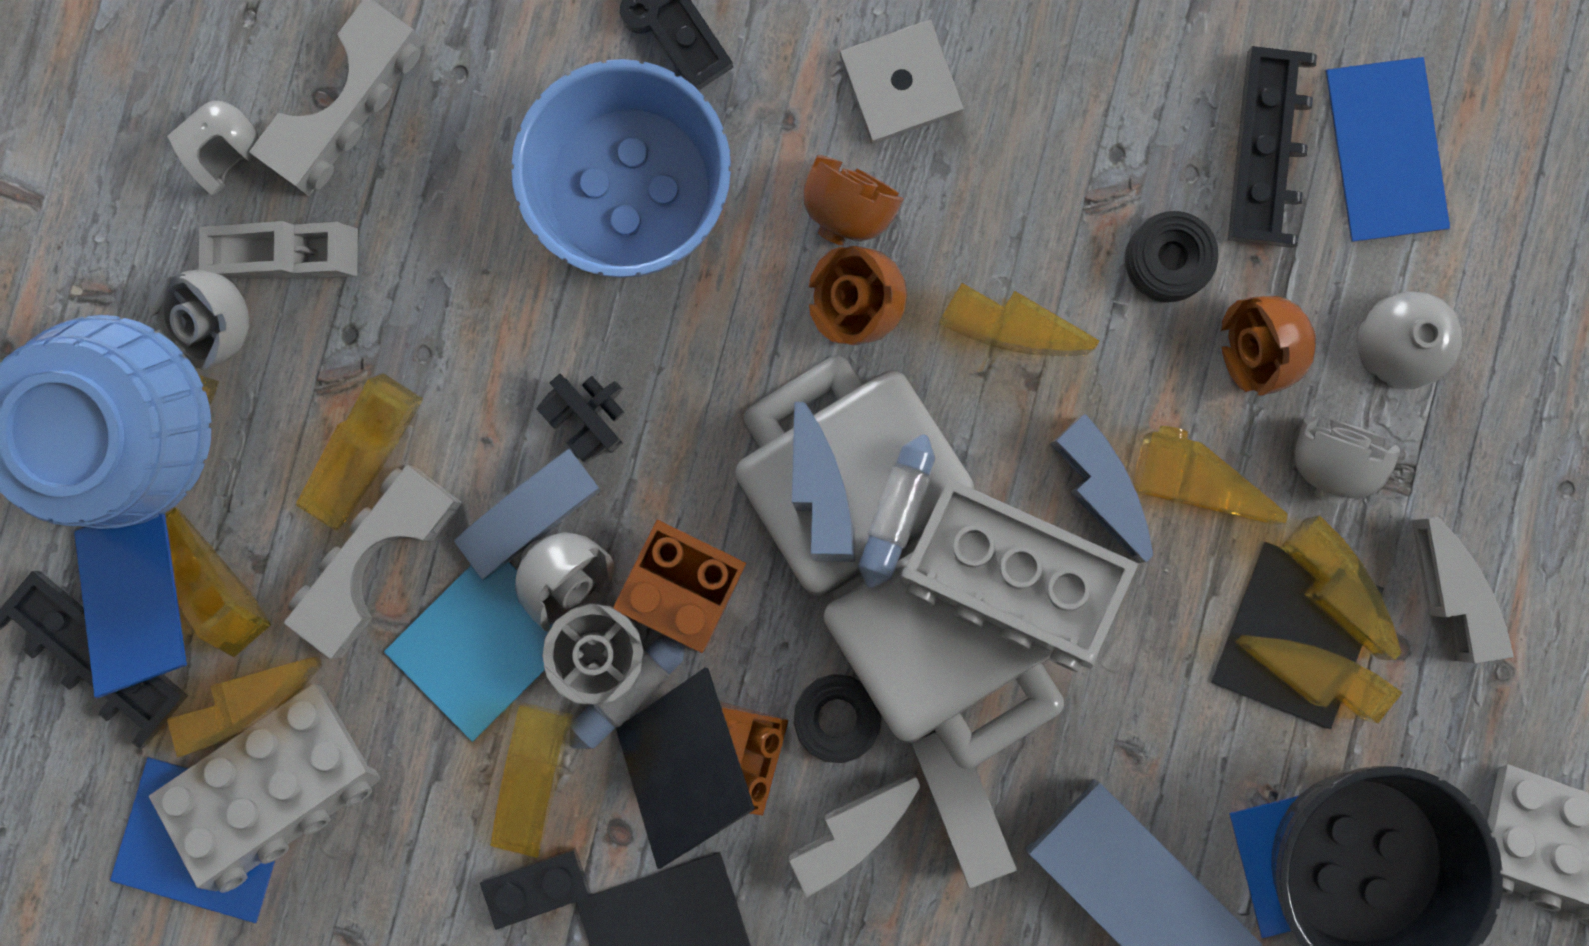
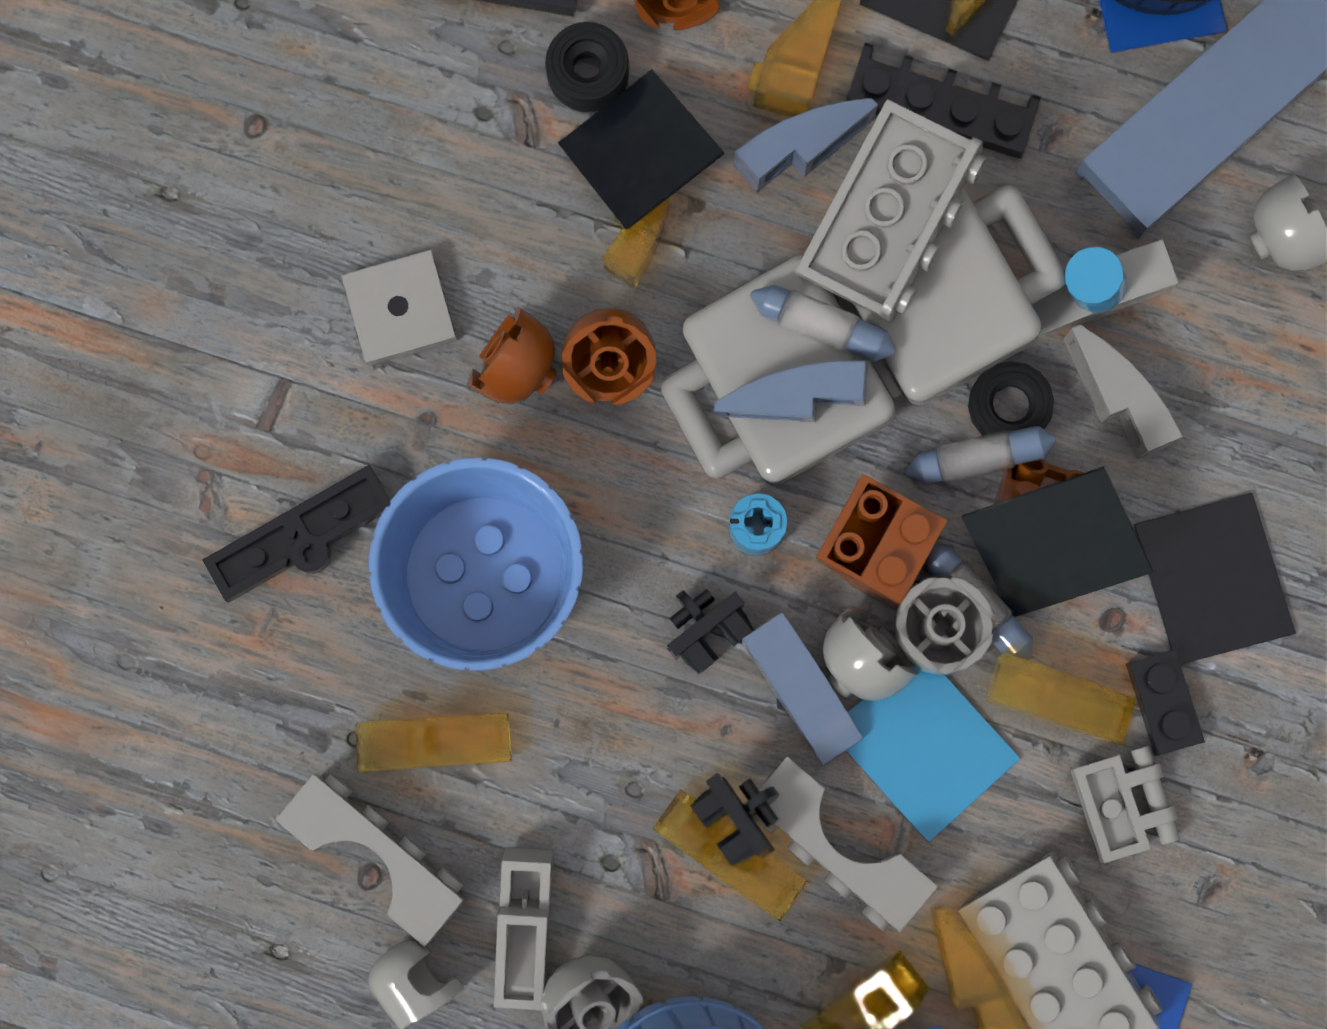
camera: 85 degrees left, 5 degrees down
(386, 459) = (723, 801): none -> black hips
(423, 835) = (1111, 808): none -> light grey plate
(455, 148) = (432, 742): none -> clear yellow slope
(692, 460) = (757, 524): none -> dark azure piece
(777, 688) = (981, 455): none -> piece
(965, 798) = (1095, 279): none -> dark azure piece
(1081, 315) = (640, 149): none -> black piece
(1156, 633) = (996, 122): none -> black hinge

